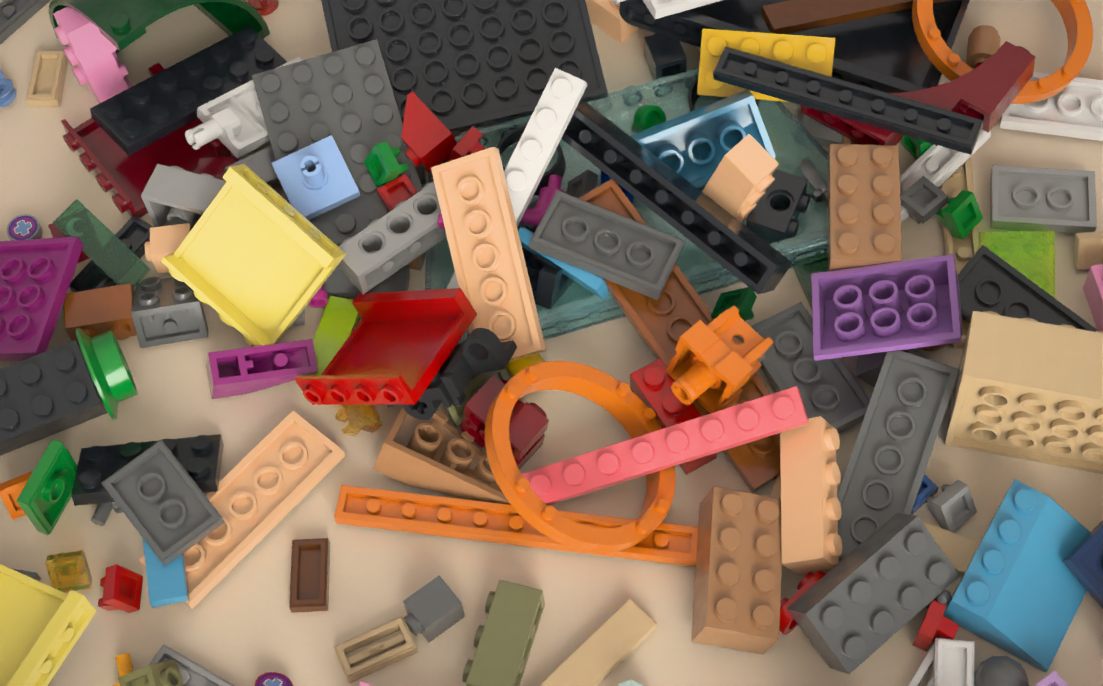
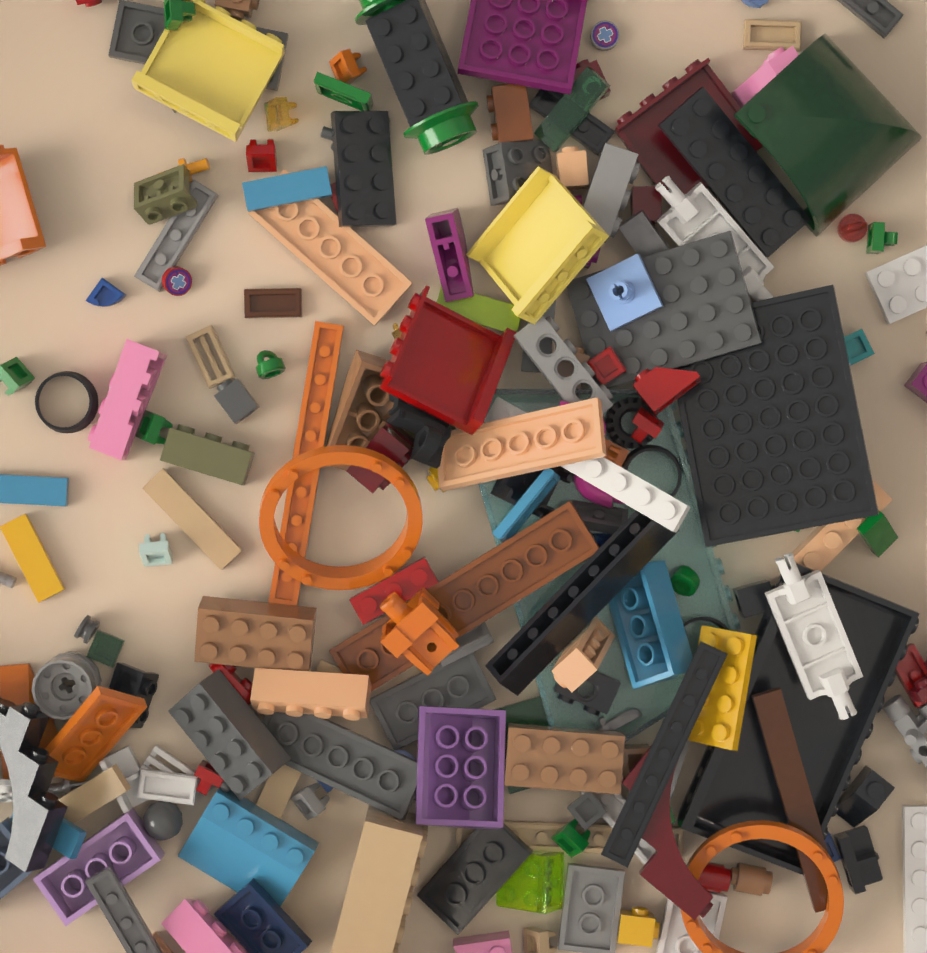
camera: 85 degrees right, 30 degrees up
(163, 502) = (321, 186): dark grey tile -> none
(383, 164) = (631, 351): green tile -> none
(390, 571) = (271, 367): none -> green tile
(607, 244) = (532, 543): dark grey tile -> none
(669, 446) = (352, 584): coral plate -> none
(741, 298) = (476, 645): dark green tile -> none
(1056, 148) = (637, 927): none -> yellow brick

